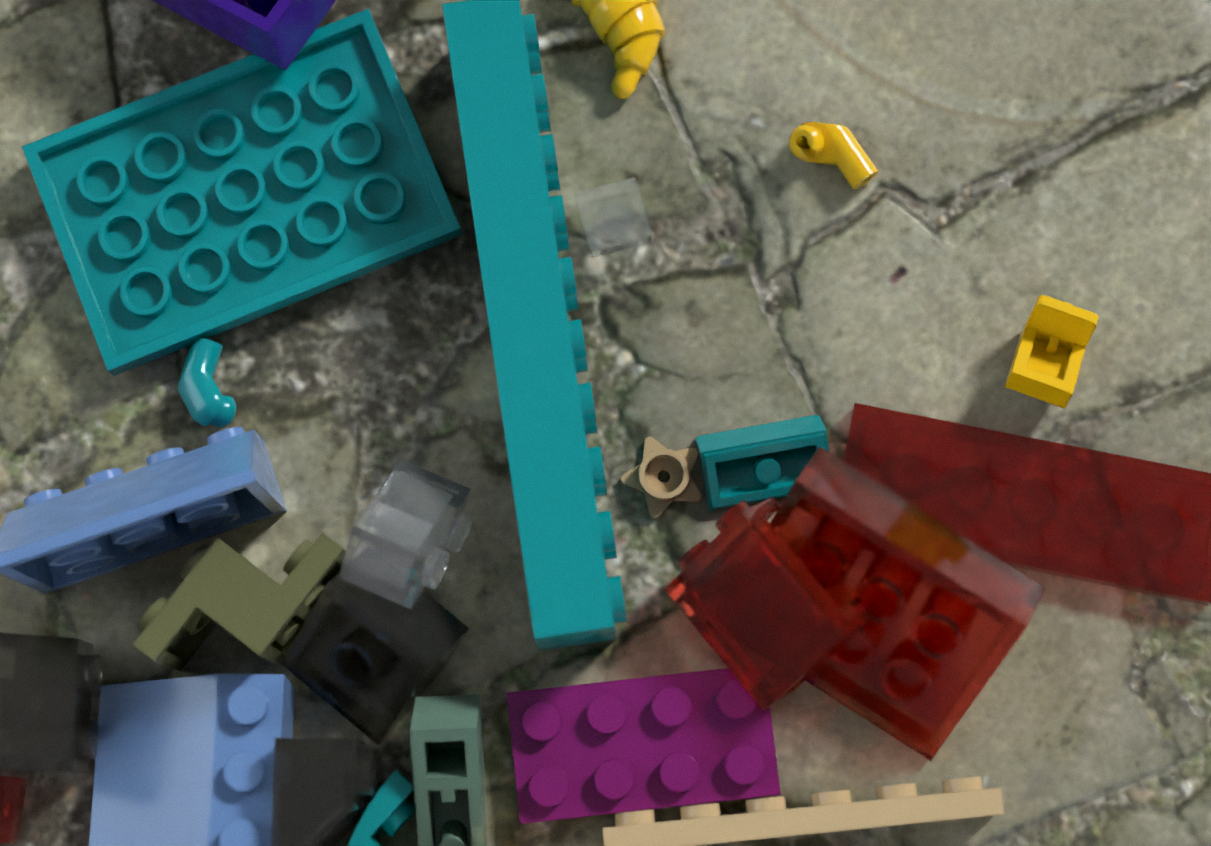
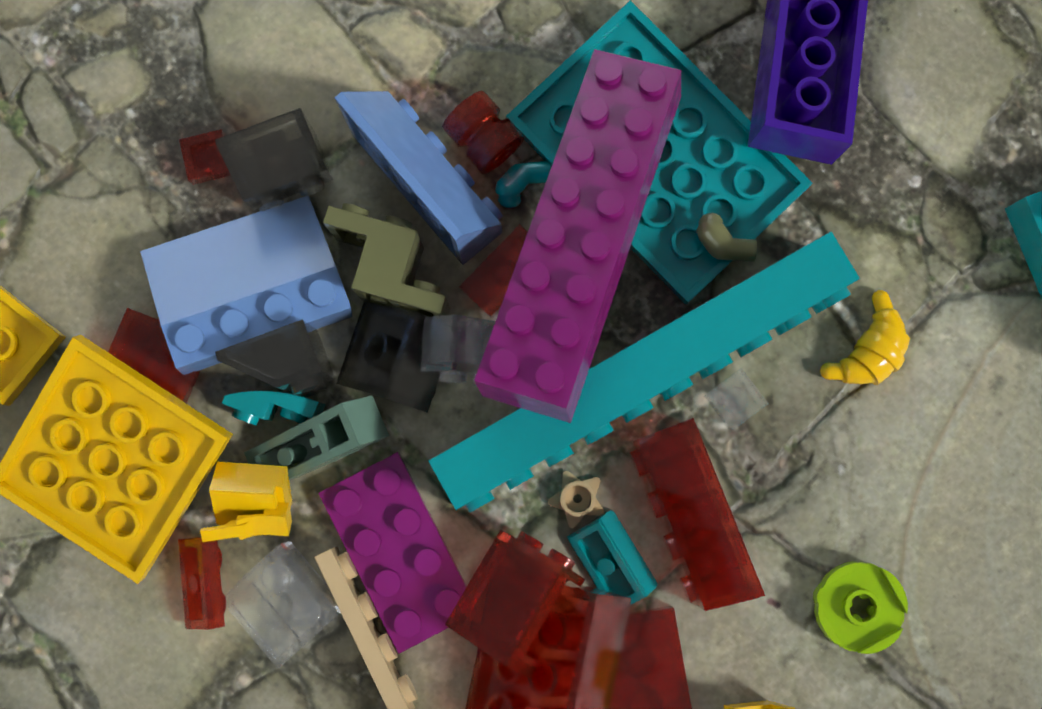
camera: 65 degrees right, 5 degrees up
(117, 409) = (478, 127): none -> clear red wheel
(315, 324) = (580, 236): none -> magenta brick
(319, 454) = (492, 277): none -> clear red plate
(397, 154) = (720, 242): none -> olive arm
(744, 324) = (696, 516): none -> clear red slope
(834, 146) = (844, 528): yellow arm -> none
(963, 138) = (885, 614): none -> lime plate

